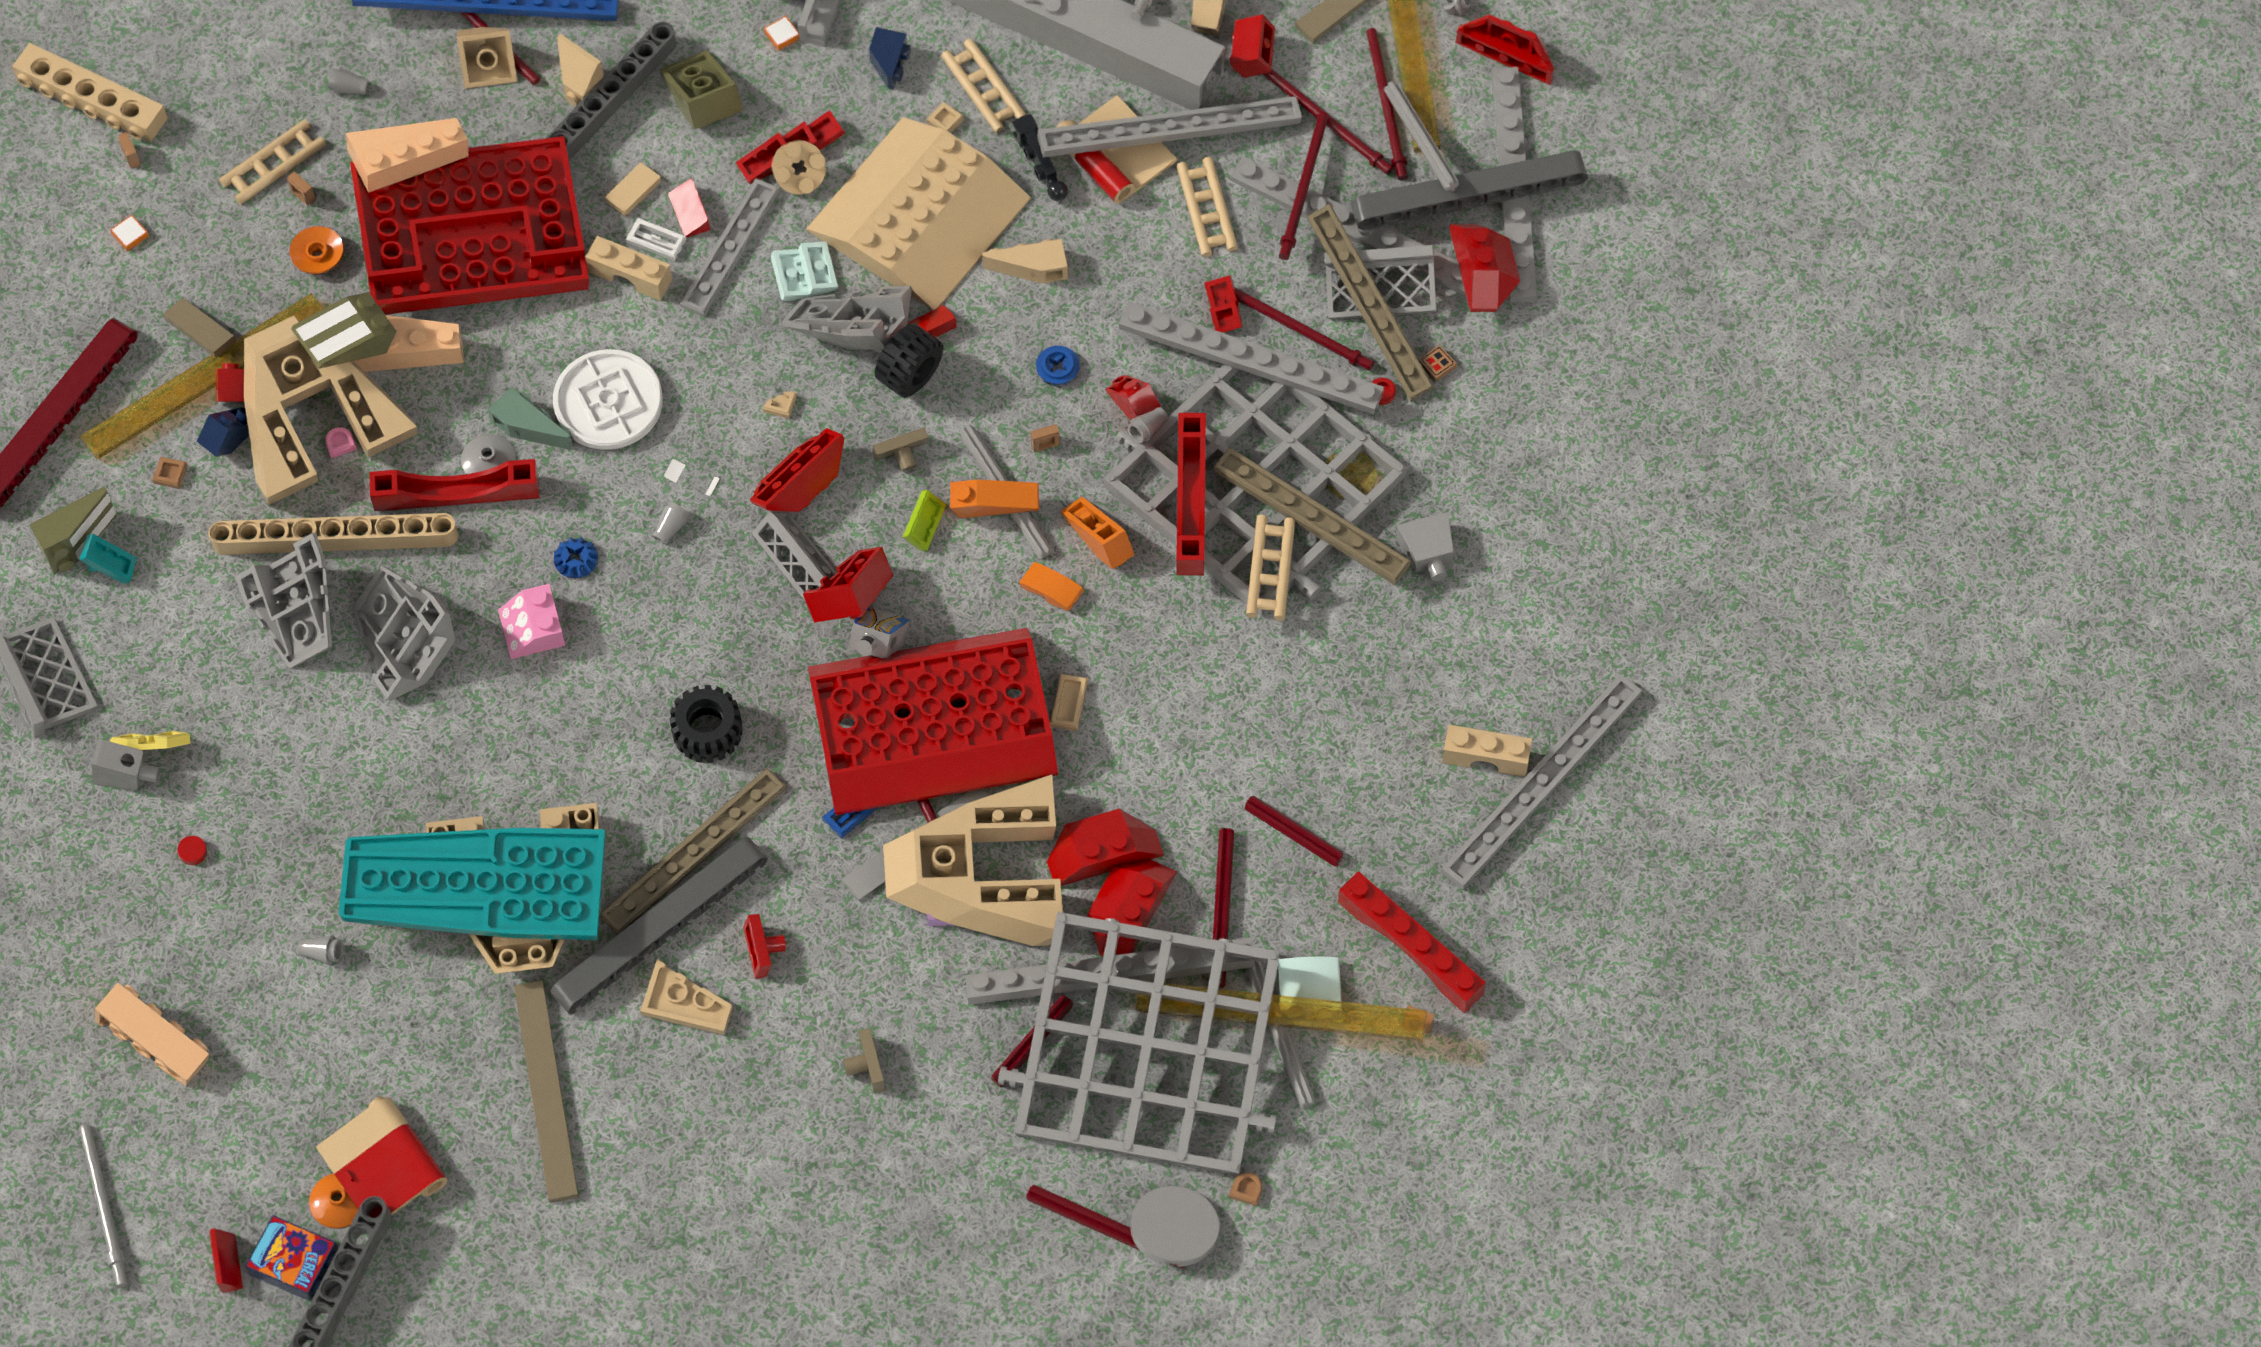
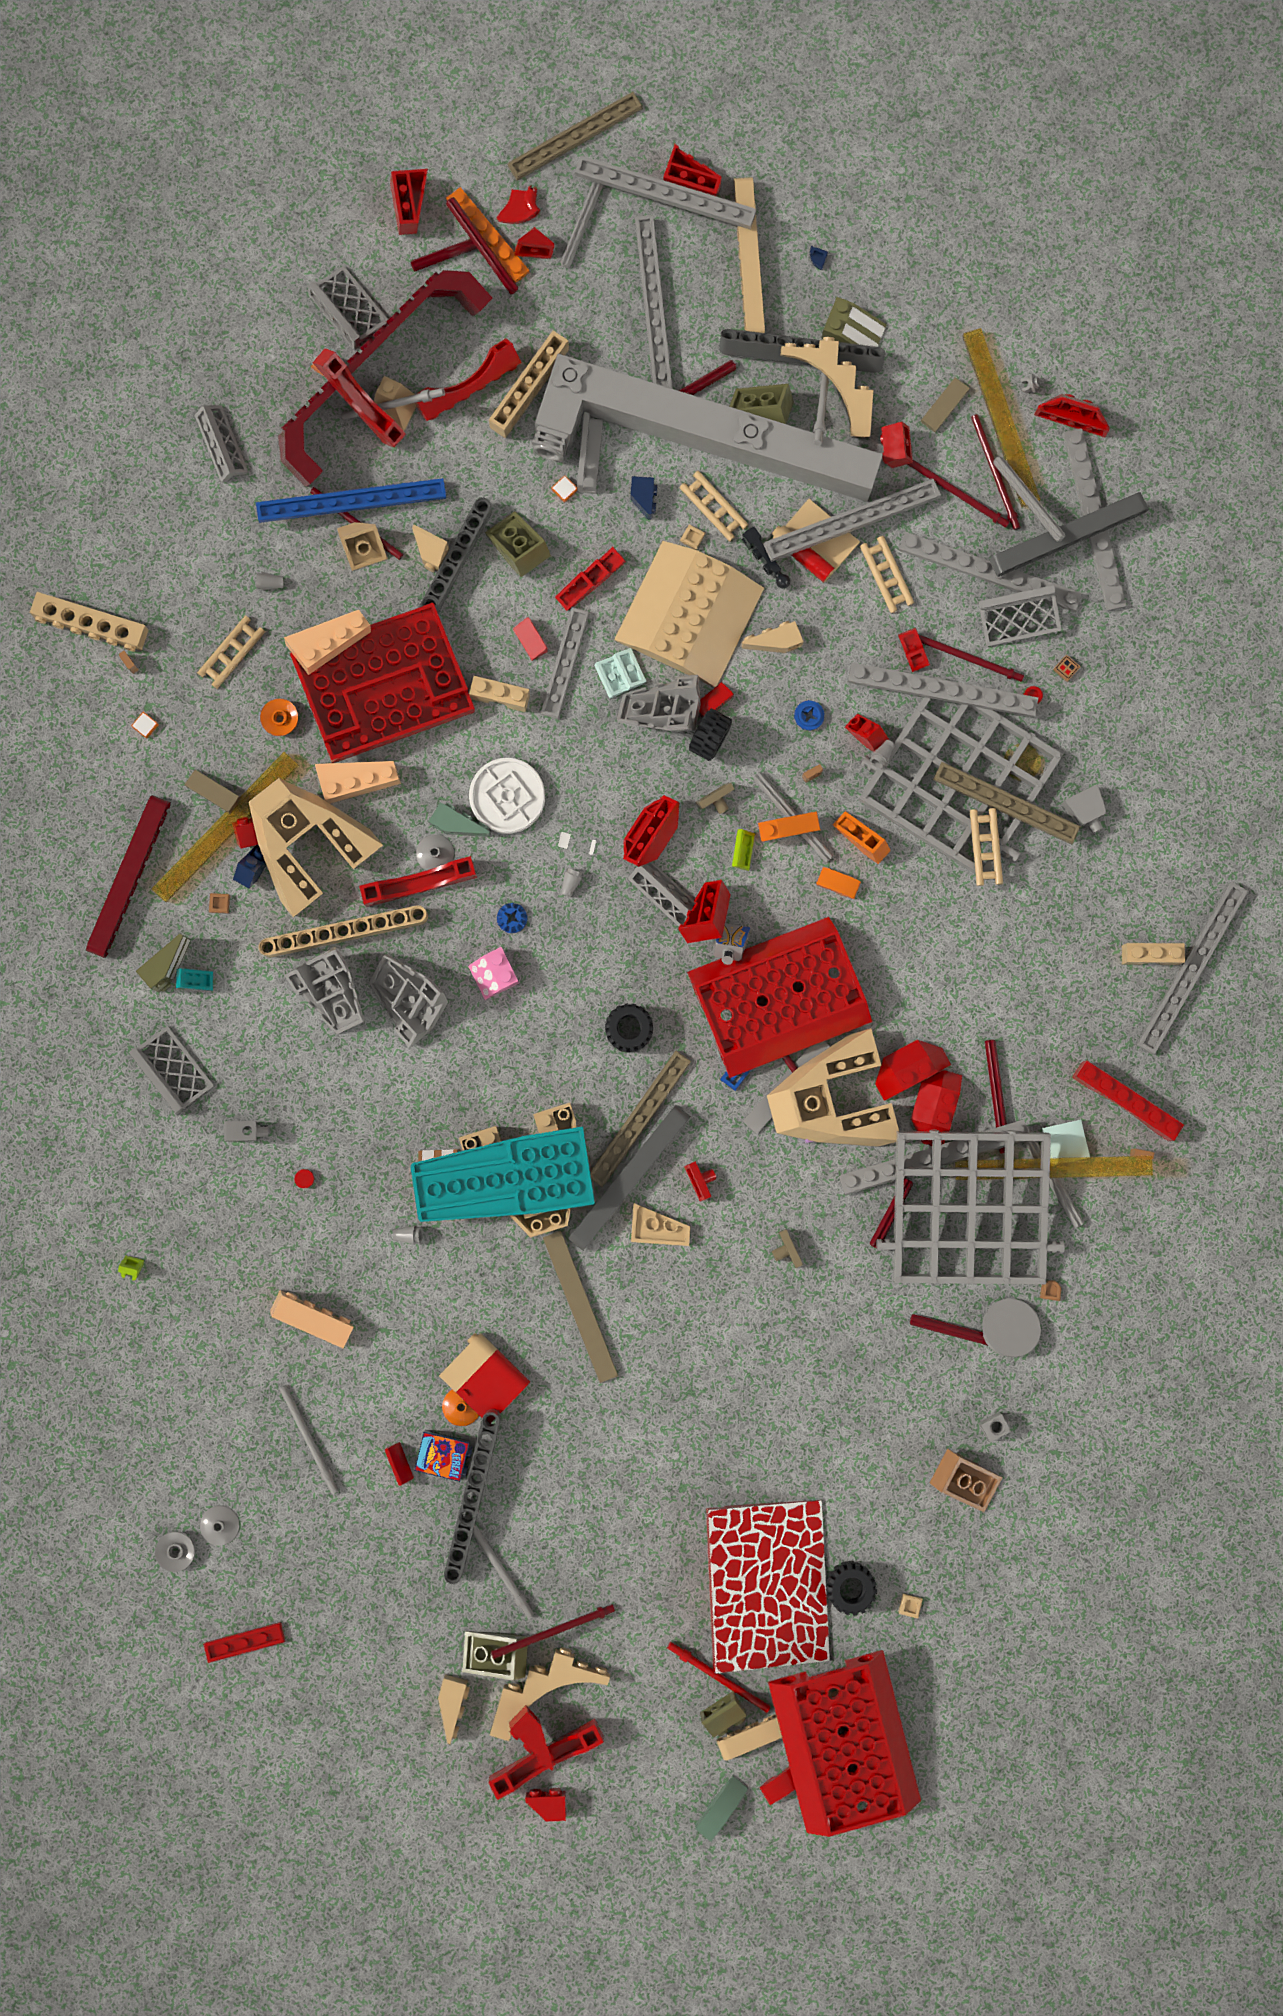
camera: 15 degrees left, 20 degrees up
(155, 741) = (247, 1111): light yellow tile -> none
(301, 188) = (256, 671): medium nougat tile -> none
(339, 442) = (330, 859): bright pink tile -> none
(346, 331) = (319, 788): olive slope -> none
(633, 189) = (487, 629): tan tile -> none
(671, 255) = (511, 673): white tile -> none
(781, 405) = (626, 777): tan tile -> none
(784, 172) = (606, 604): tan plate -> none
(1068, 702) = (867, 965): tan tile -> none
(1191, 494) = (920, 786): red arch -> none
(1288, 240) = (951, 595): dark red bar -> none
(1294, 831) = (1034, 1032): dark red axle -> none
(1370, 302) = (1016, 633): dark tan tile -> none
(1484, 265) = (1088, 589): red wedge -> none

